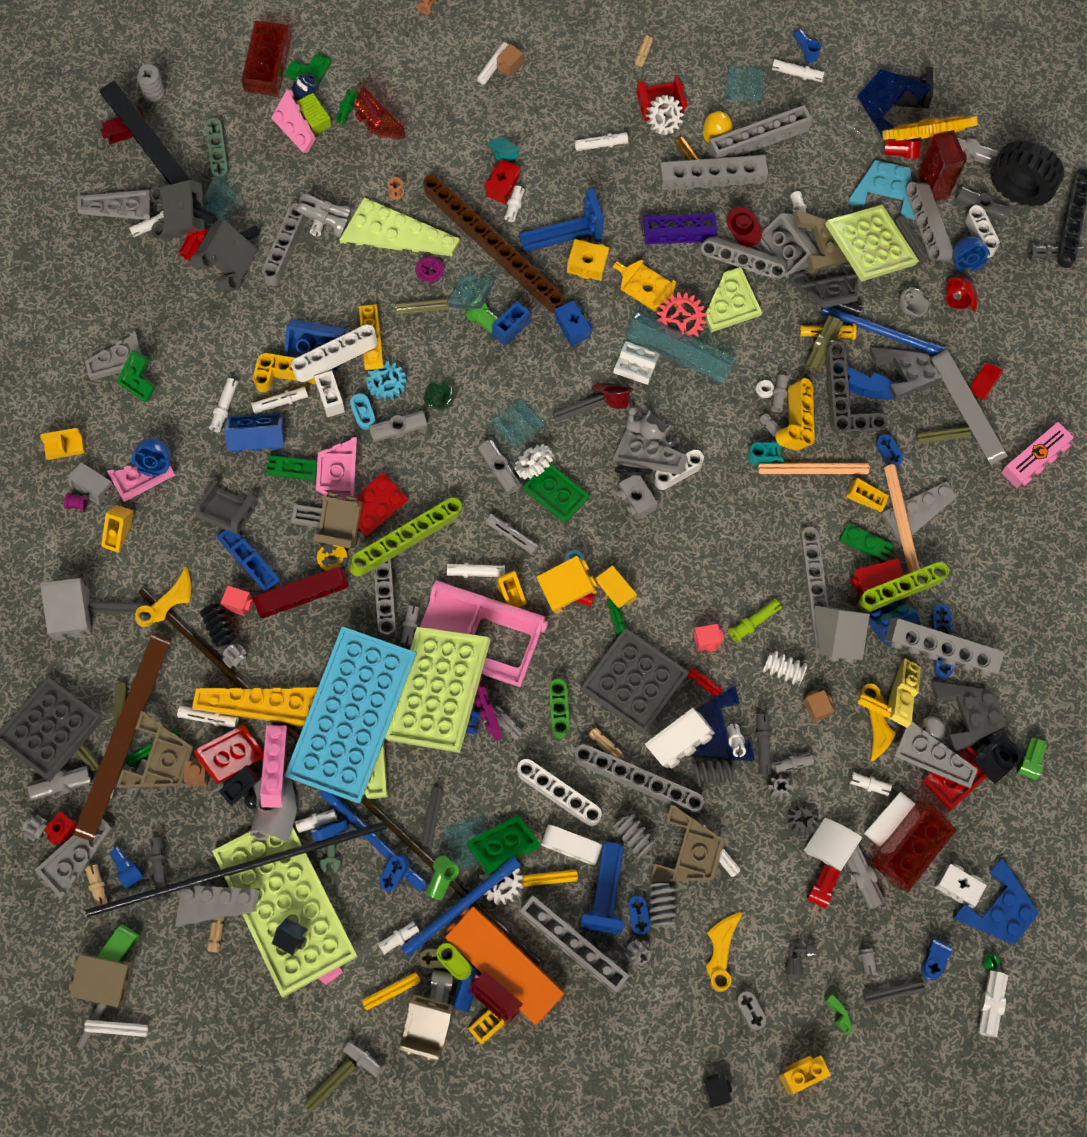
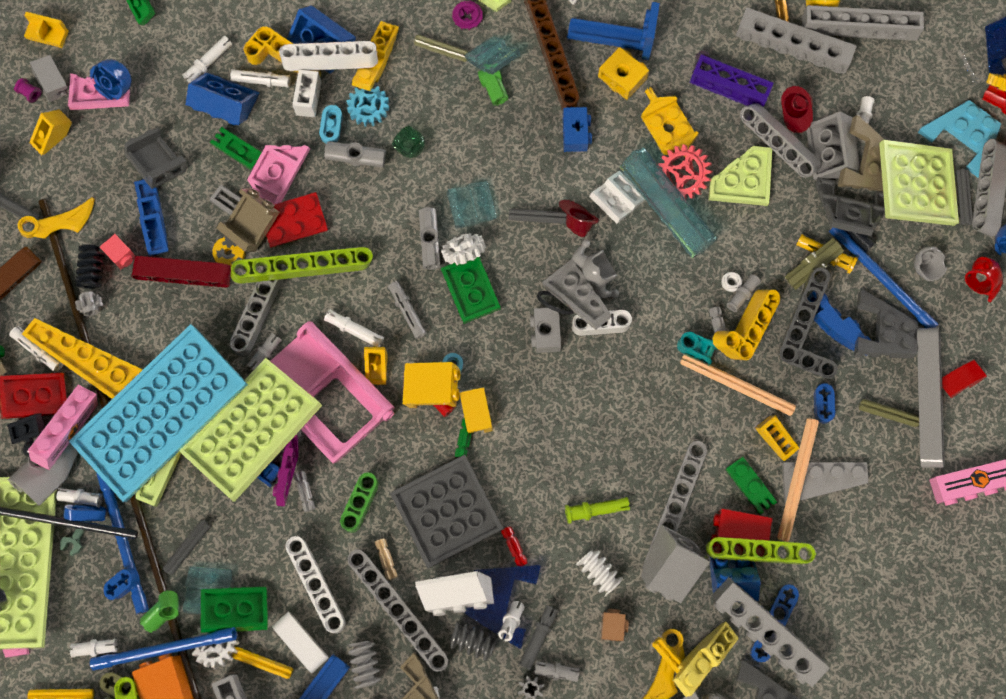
camera: 30 degrees right, 5 degrees up
(511, 323) = (514, 102): blue brick -> none
(708, 637) = (540, 504): coral brick -> none

